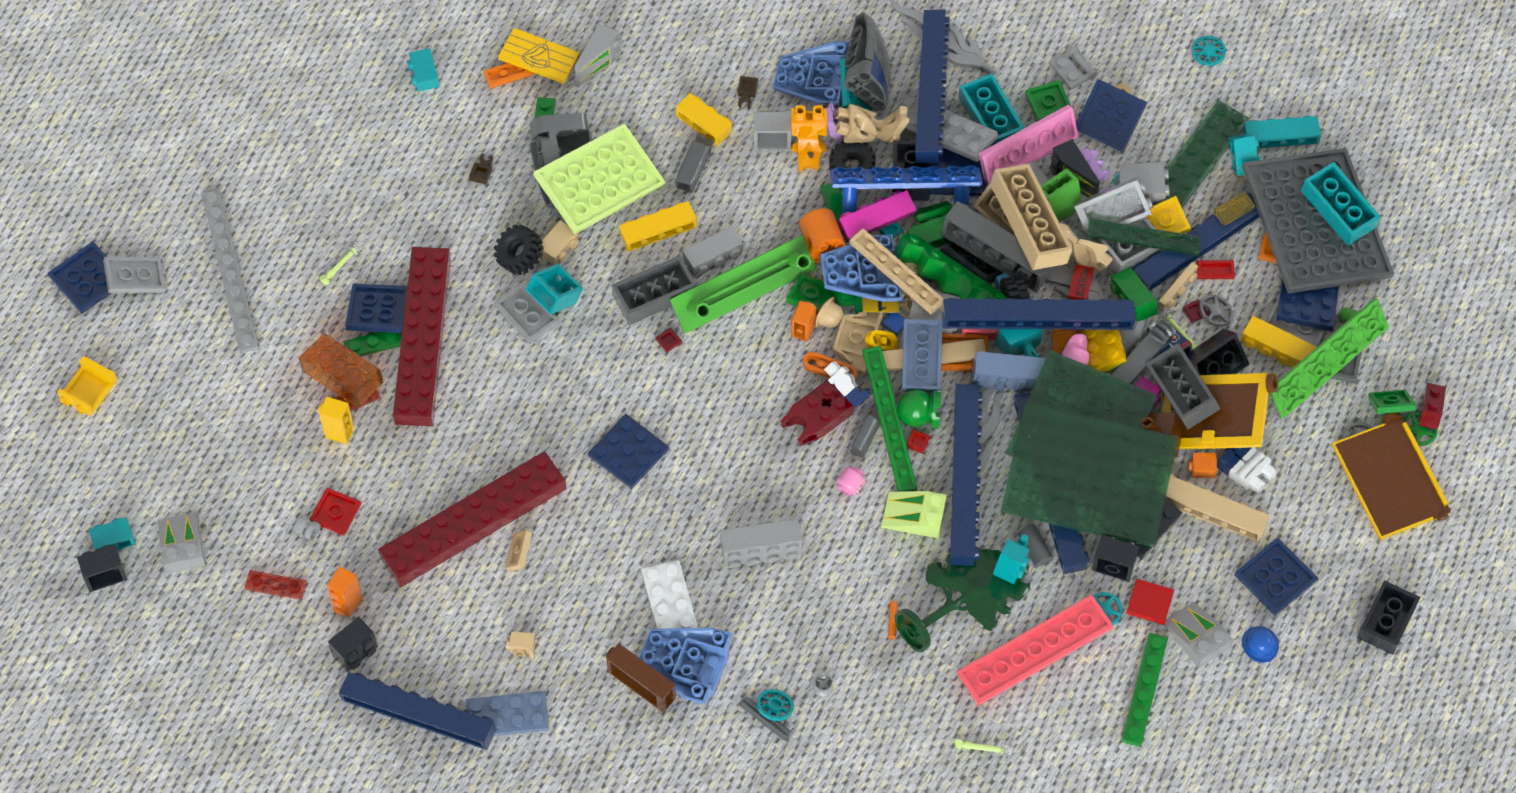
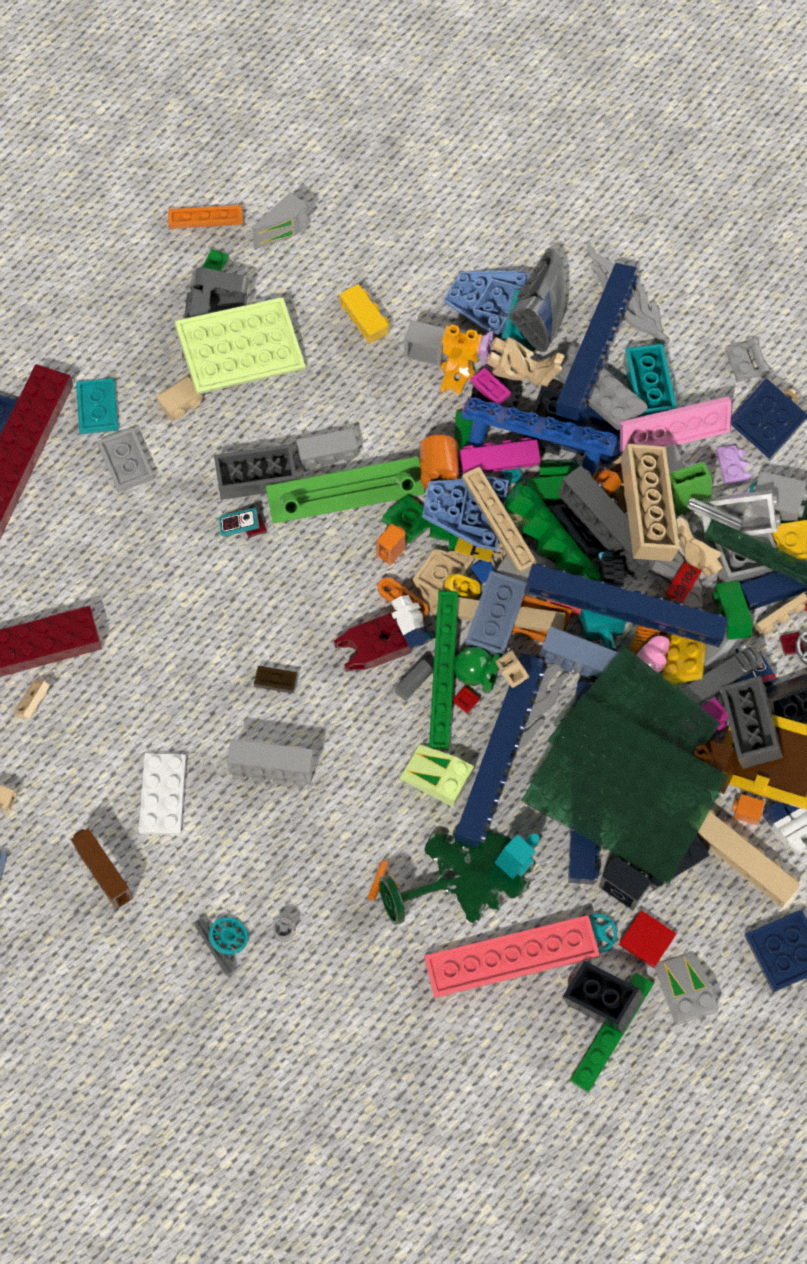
camera: 15 degrees right, 5 degrees up
(423, 69) = (112, 193): teal brick -> none
(481, 171) = (131, 308): dark brown plate -> none
(481, 271) = (97, 406): none -> teal tile
(511, 242) = (130, 387): black tyre -> none
(539, 55) = (225, 208): yellow tile -> none
(551, 291) = (155, 445): teal piece -> none
(628, 451) = (175, 628): dark blue plate -> none
(654, 340) = (238, 522): none -> tile
(657, 226) = (282, 408): yellow brick -> none
(689, 658) = (155, 863): medium blue wedge -> none
(693, 164) = (339, 355): dark grey piece -> none
(738, 471) = (275, 679): none -> dark brown plate
(747, 88) = (417, 295): dark brown plate -> none
(829, 314) = (418, 544): tan hat -> none
(847, 154) = (490, 387): none -> dark pink plate
(850, 481) = (384, 722): bright pink head -> none
(954, 398) = (512, 669): none -> tan brick
(986, 207) = (608, 480): none -> orange brick
(1006, 749) = (447, 1056): yellowish green piece -> none
(1038, 550) = (548, 844): dark grey brick -> none
(1047, 99) = (710, 384): green plate -> none
(1070, 157) = (712, 452): black slope -> none
(1091, 212) = (715, 513): none -> axle
(1128, 659) = (603, 997): none -> black brick
(1167, 314) = (760, 641): piece -> none
(1260, 644) = (748, 1018): blue hat -> none

